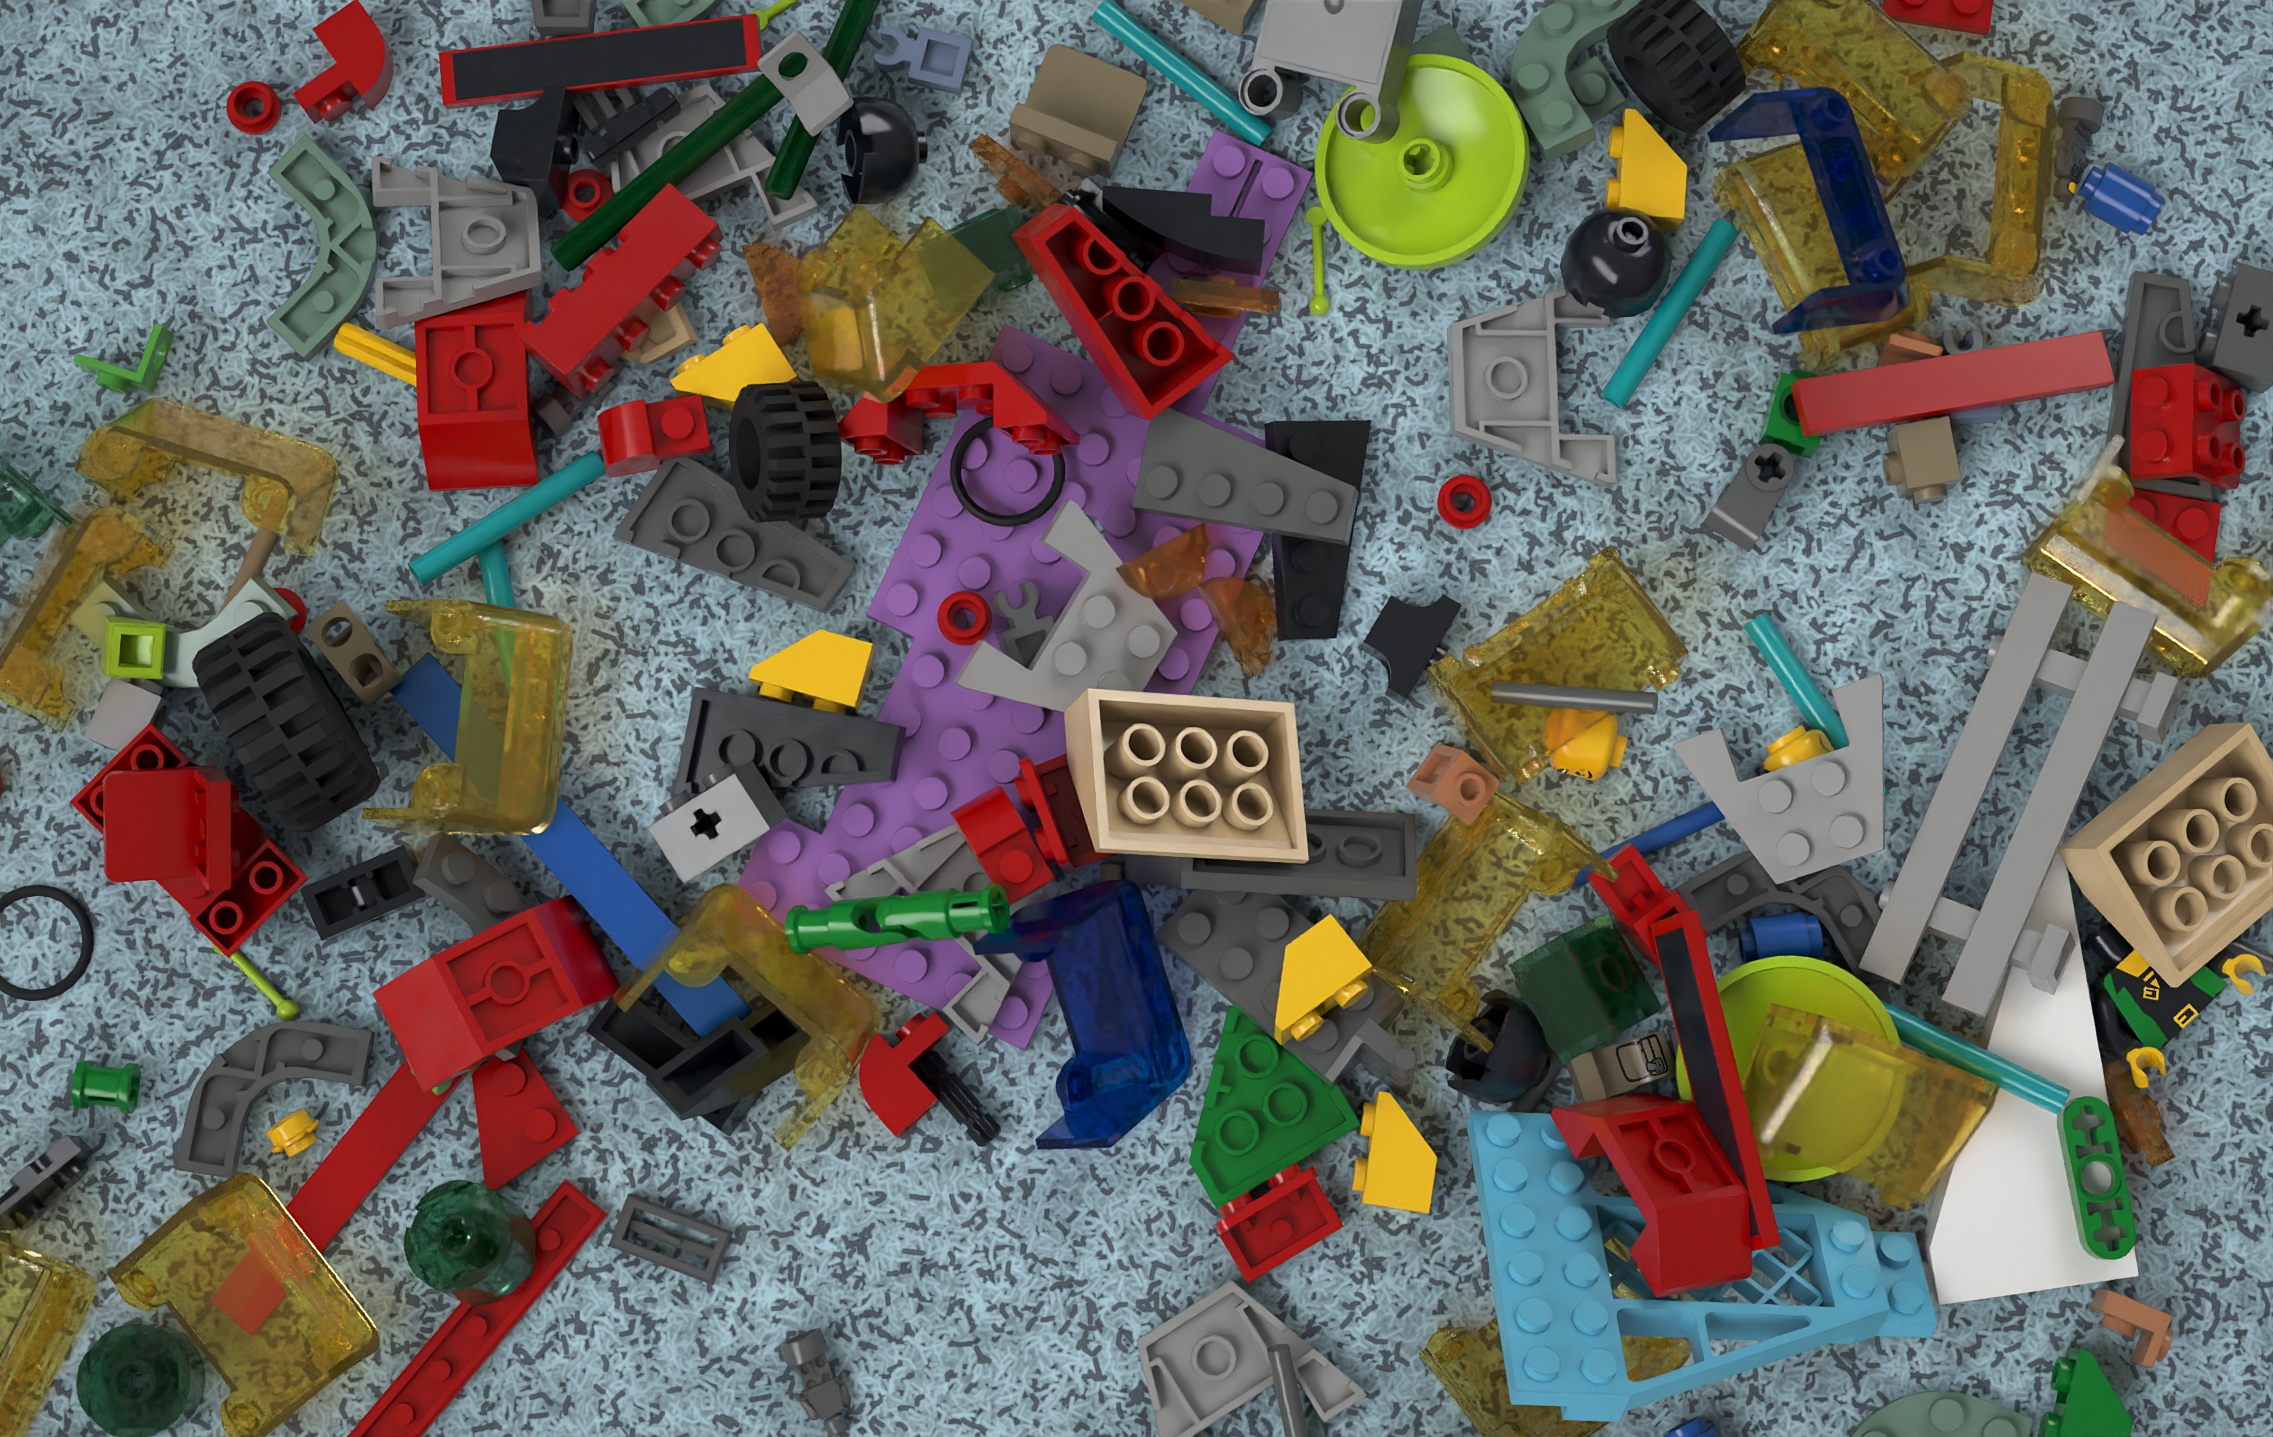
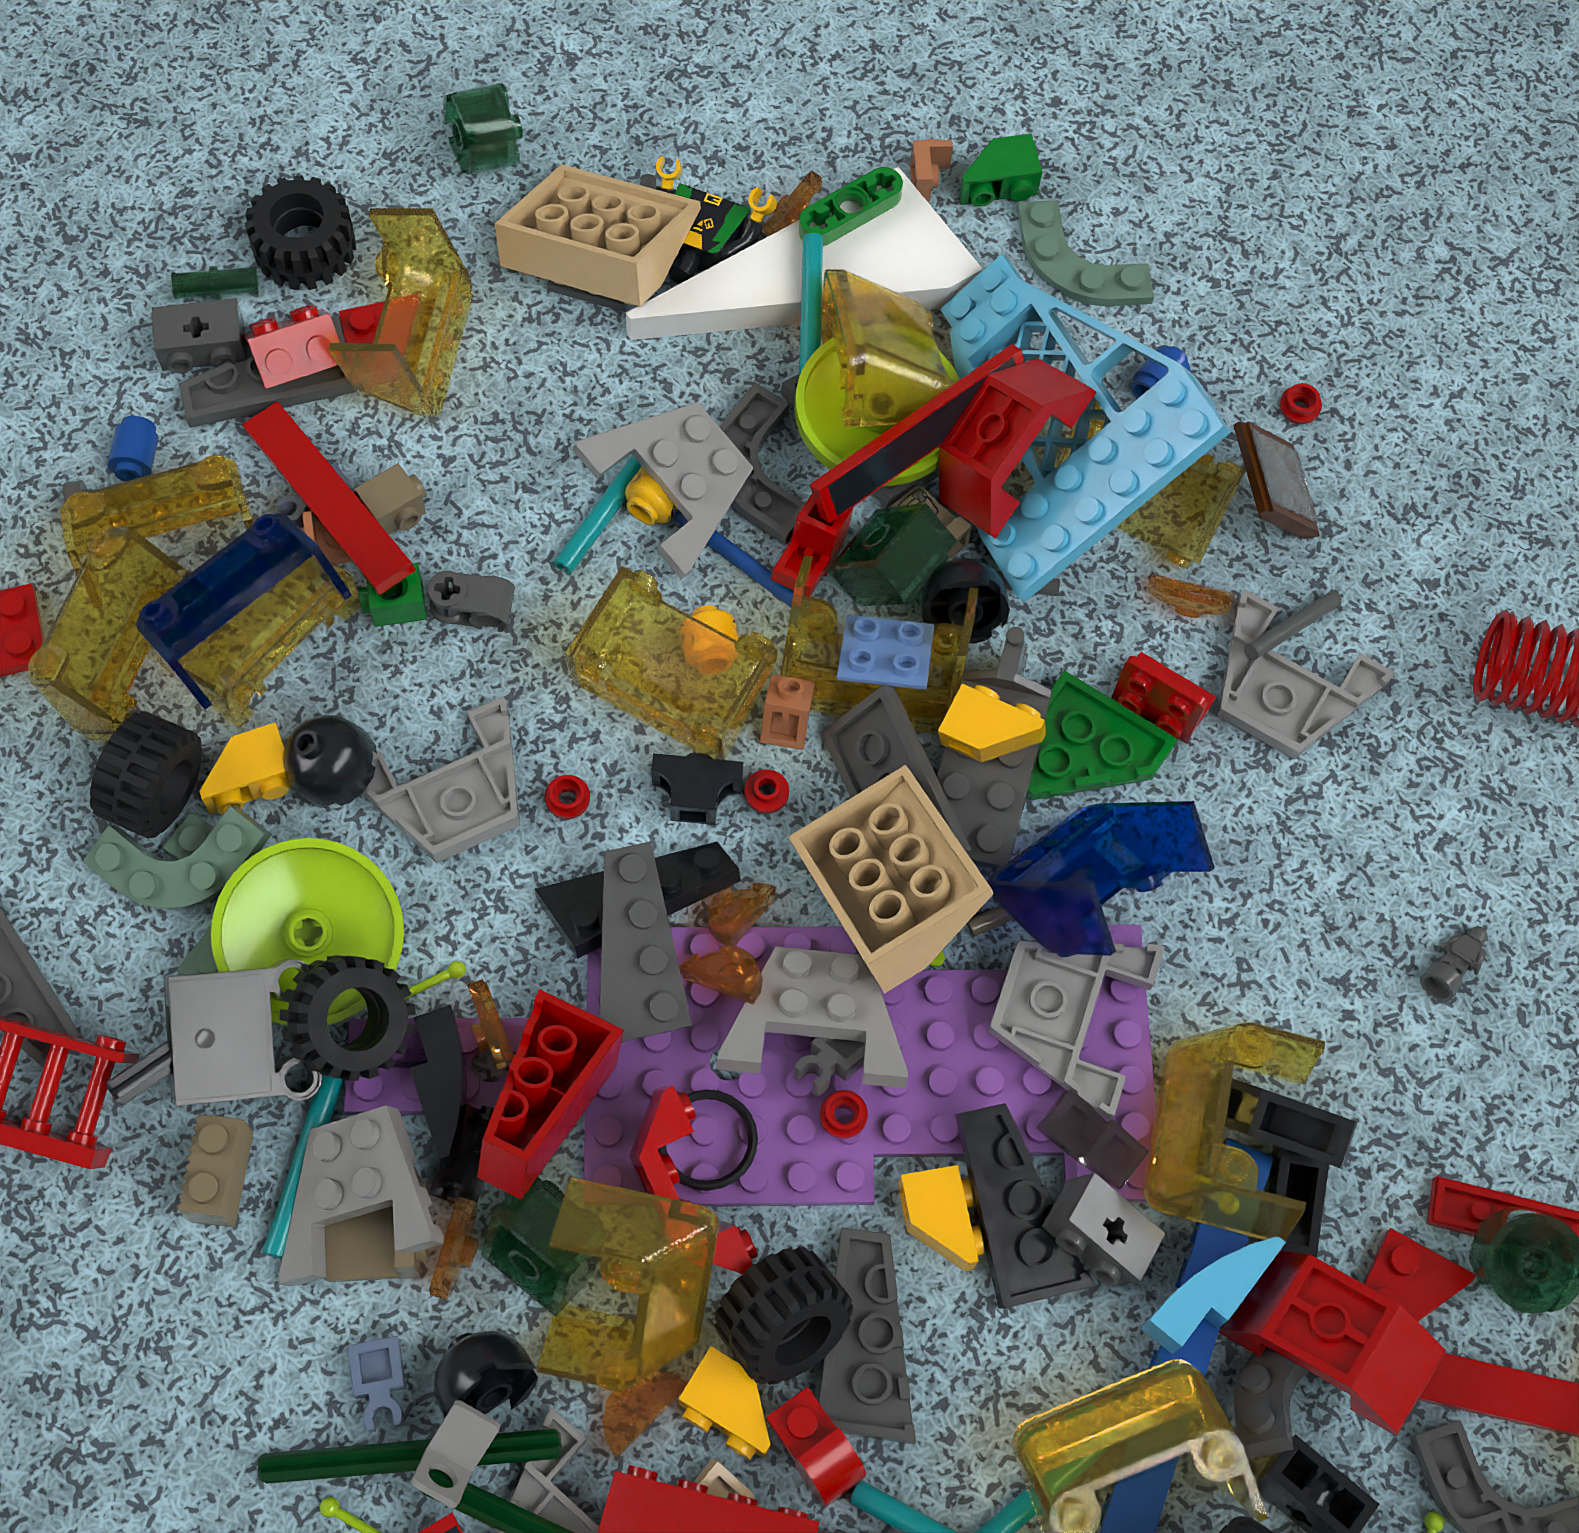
camera: 120 degrees left, 15 degrees down
(293, 1133) = (1529, 1455): yellow plate -> none
(598, 887) = (1211, 1294): none -> medium azure slope
(715, 1255) = (1405, 1123): dark grey tile -> none
(814, 861) = (1091, 1140): none -> clear smoke slope
(887, 1076) = (1223, 1003): red brick -> none
(923, 915) = (1100, 1006): green piece -> none
(957, 1098) = (1201, 959): black axle -> none
(1002, 844) = (1013, 985): red brick -> none
(1064, 832) = (957, 965): red bracket -> none
(1136, 109) = (350, 1172): none -> light grey wing
(1254, 152) = (385, 1021): none -> black tyre
(1365, 736) = (766, 803): none -> red plate
(1387, 1329) = (1190, 598): none -> clear orange plate
(1398, 1159) = (1078, 636): yellow slope -> none
(1464, 918) = (886, 652): none -> medium blue hinge
(1574, 697) = (687, 643): dark grey bar -> none
(1669, 313) = (361, 715): teal piece -> none
(1781, 936) = (787, 459): blue brick -> none
(2098, 694) = (514, 316): light grey fence -> none

